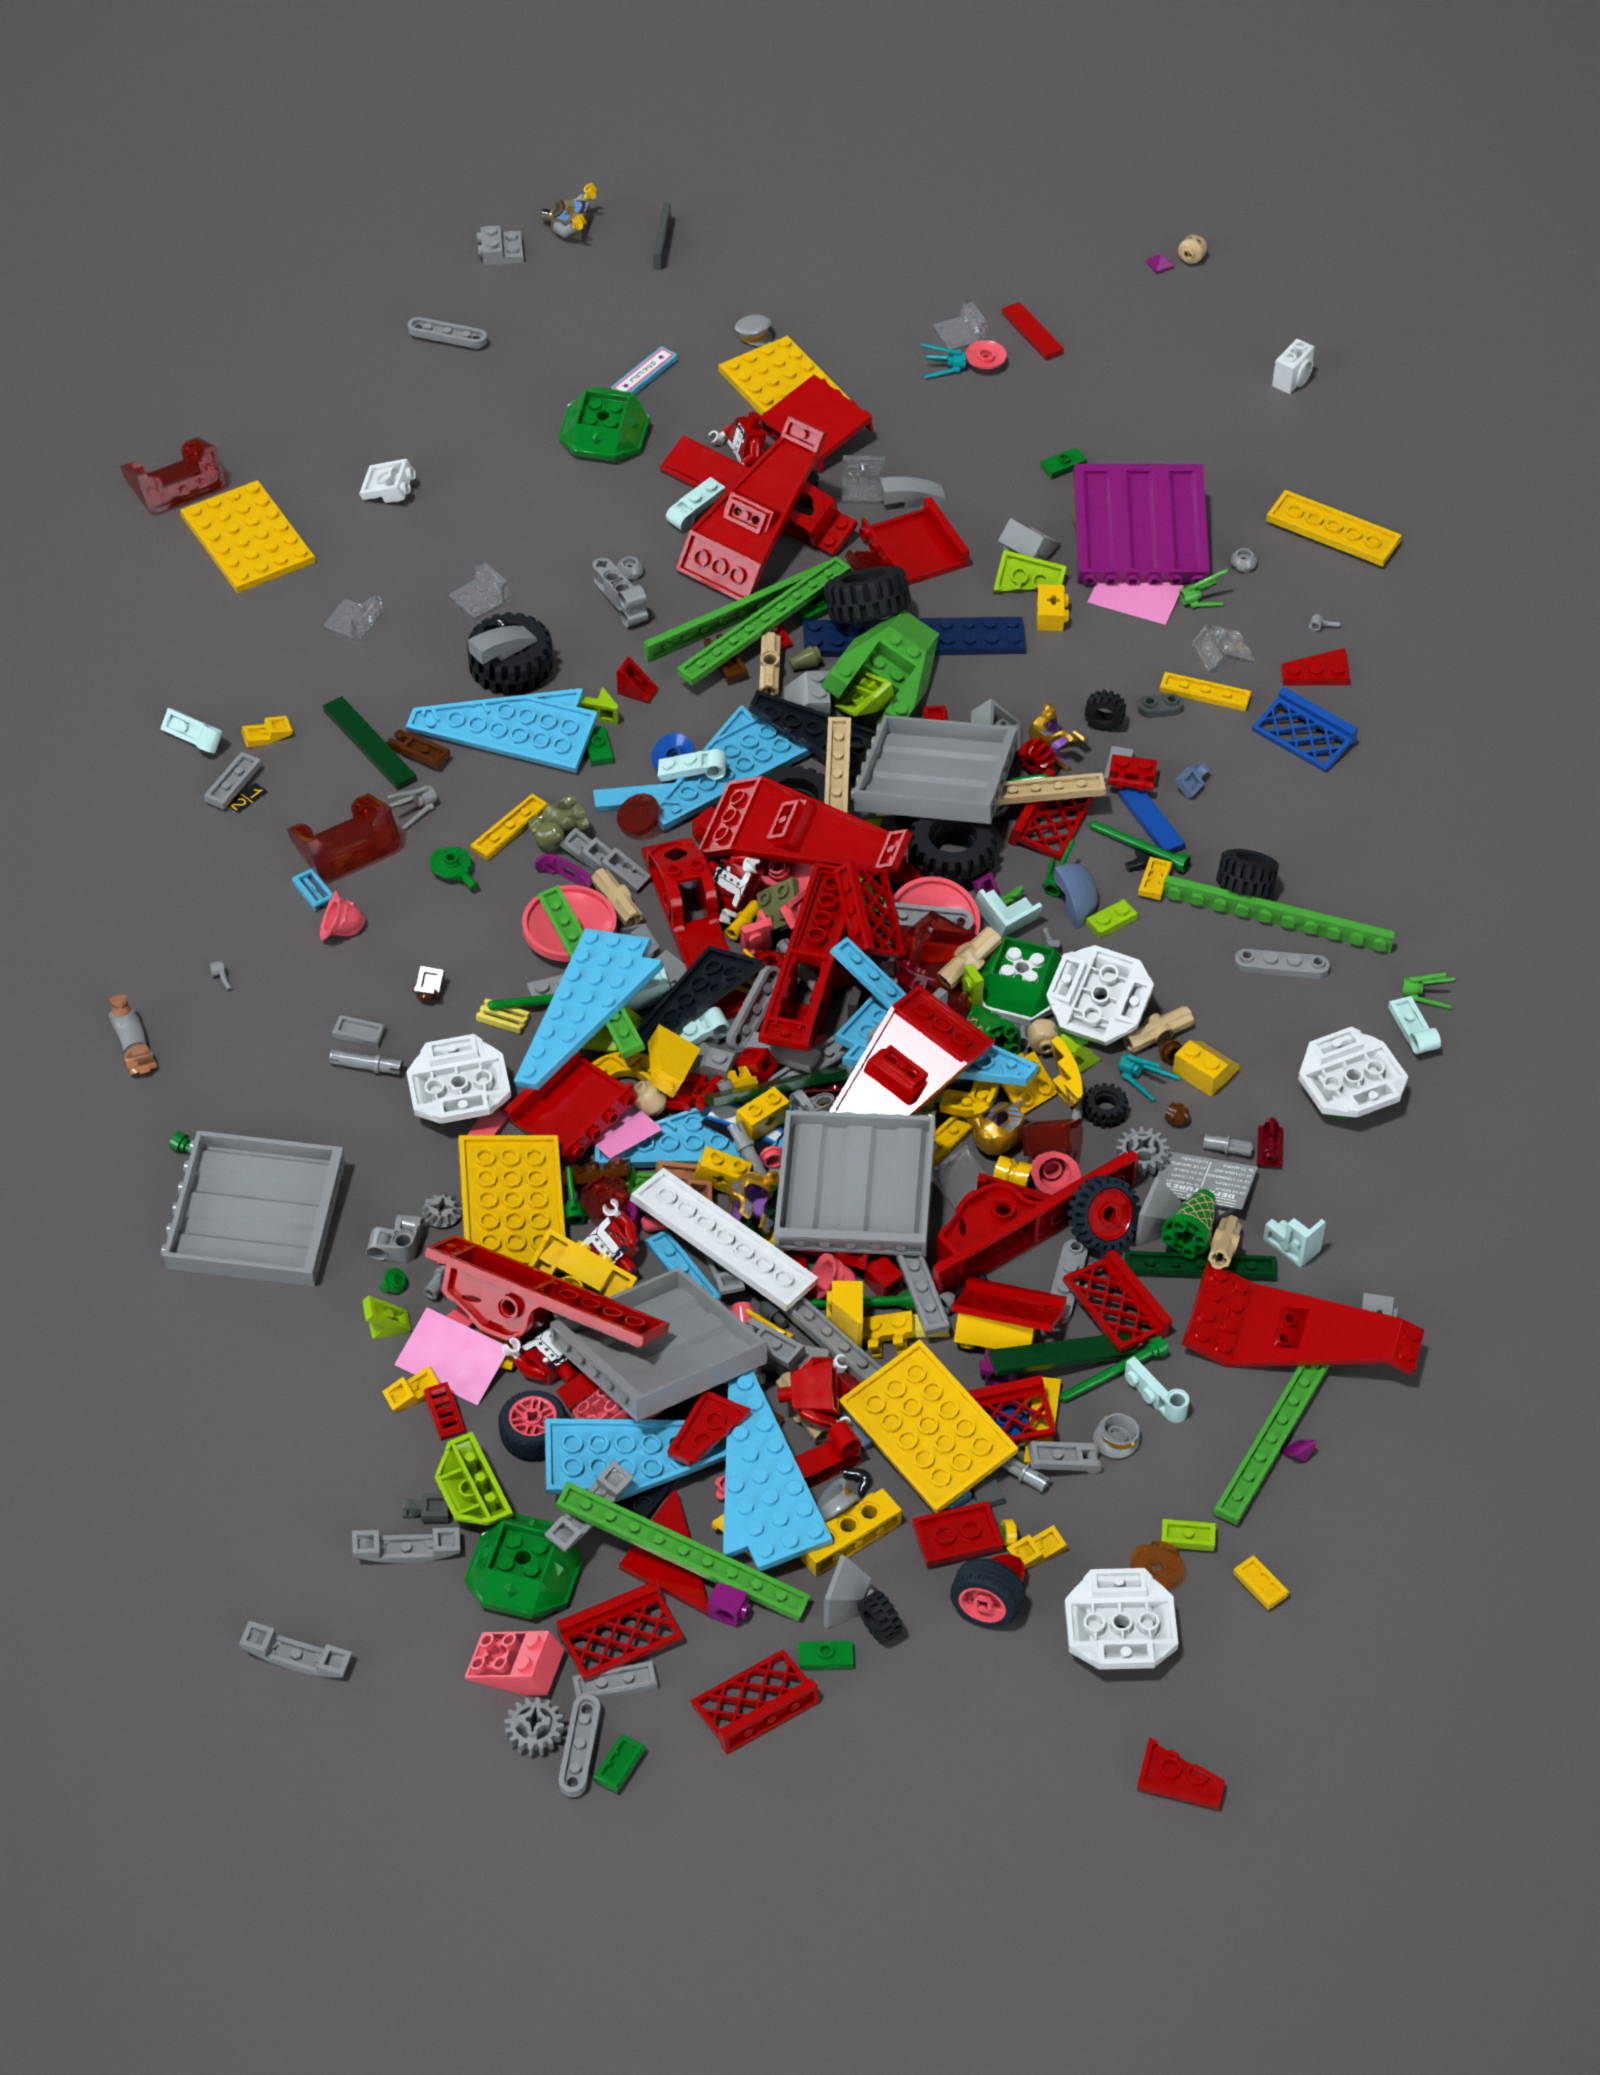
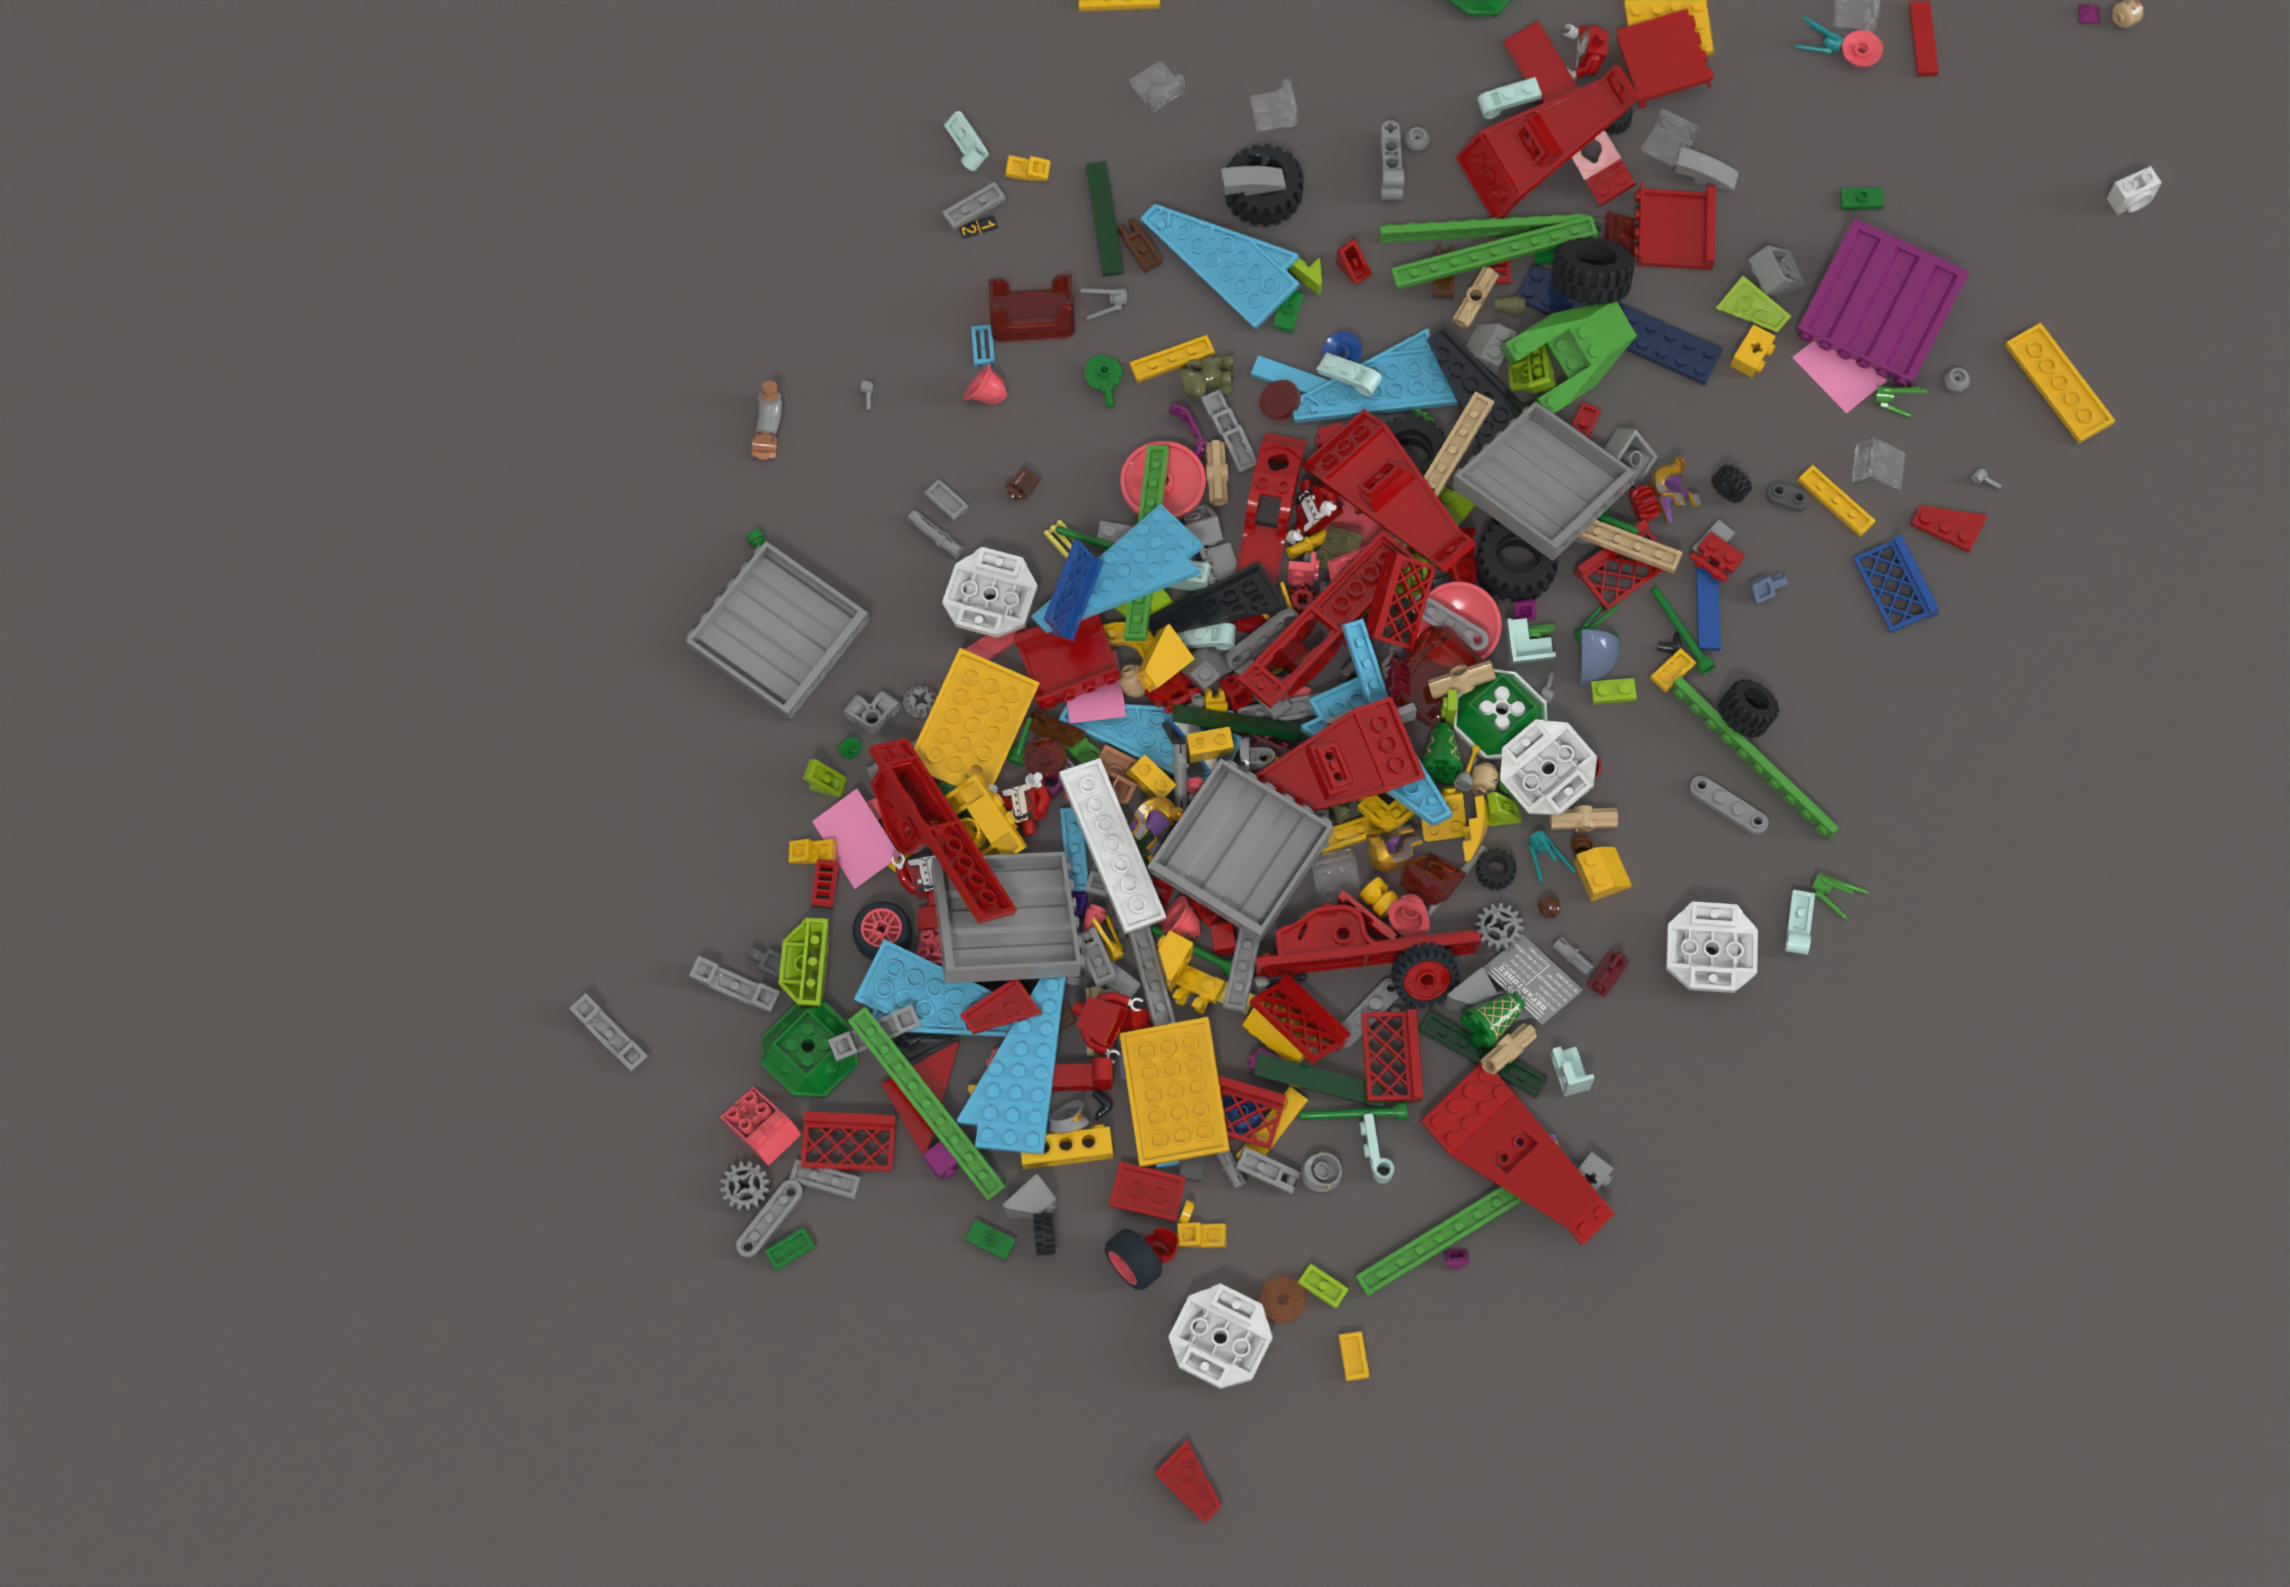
camera: 30 degrees right, 20 degrees up
(550, 1031) = (1076, 589): none -> blue fence
(766, 1713) = (917, 1268): red fence -> none
(1030, 1040) = (1464, 780): none -> light grey hinge

